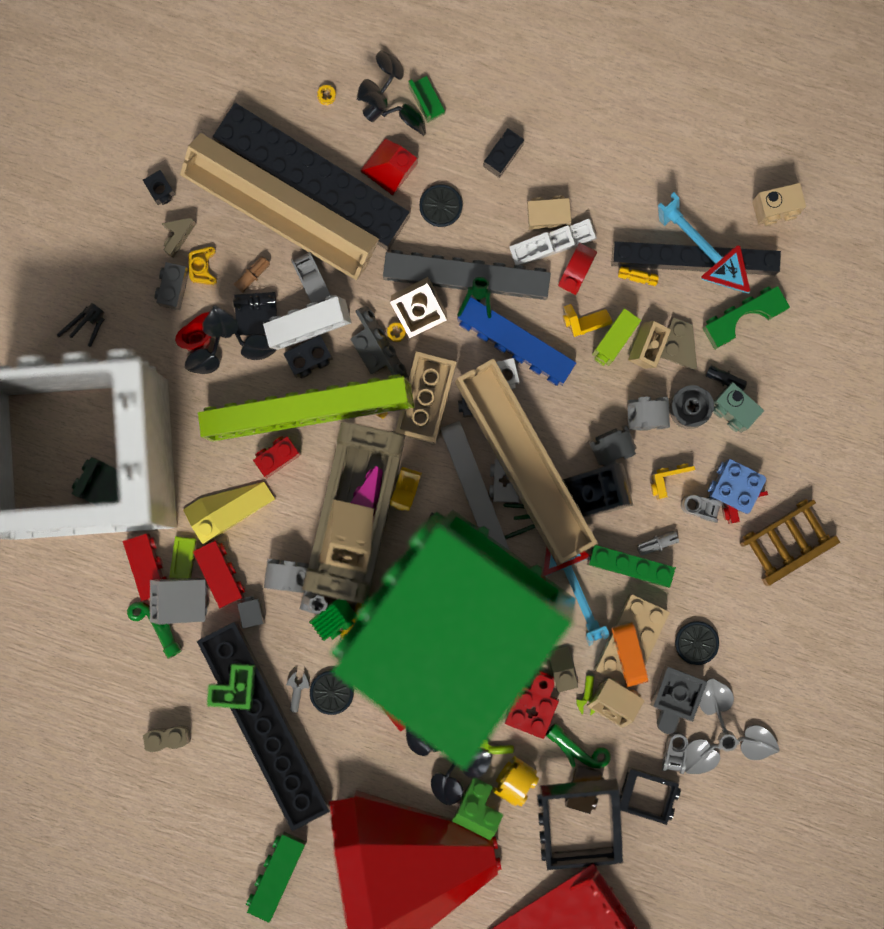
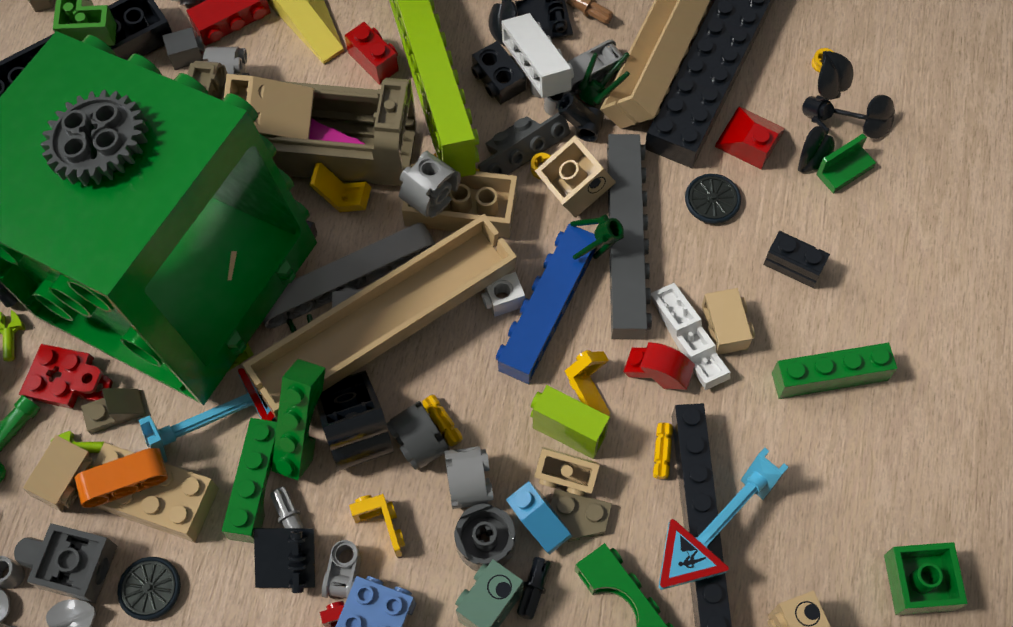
camera: 85 degrees right, 20 degrees down
(336, 283) = (593, 91): none -> dark green plant
(362, 294) = (586, 119): none -> black piece
(422, 408) = (428, 184): none -> light grey brick
(448, 654) = (94, 137): none -> dark grey gear
(595, 144) = (834, 370): none -> green brick
(597, 429) = (442, 420): none -> yellow axle
(602, 527) = (298, 399): none -> green arch
(681, 368) = (539, 517): none -> dark azure slope
(689, 546) = (284, 558): none -> black hinge
(751, 116) = (925, 578): none -> green brick

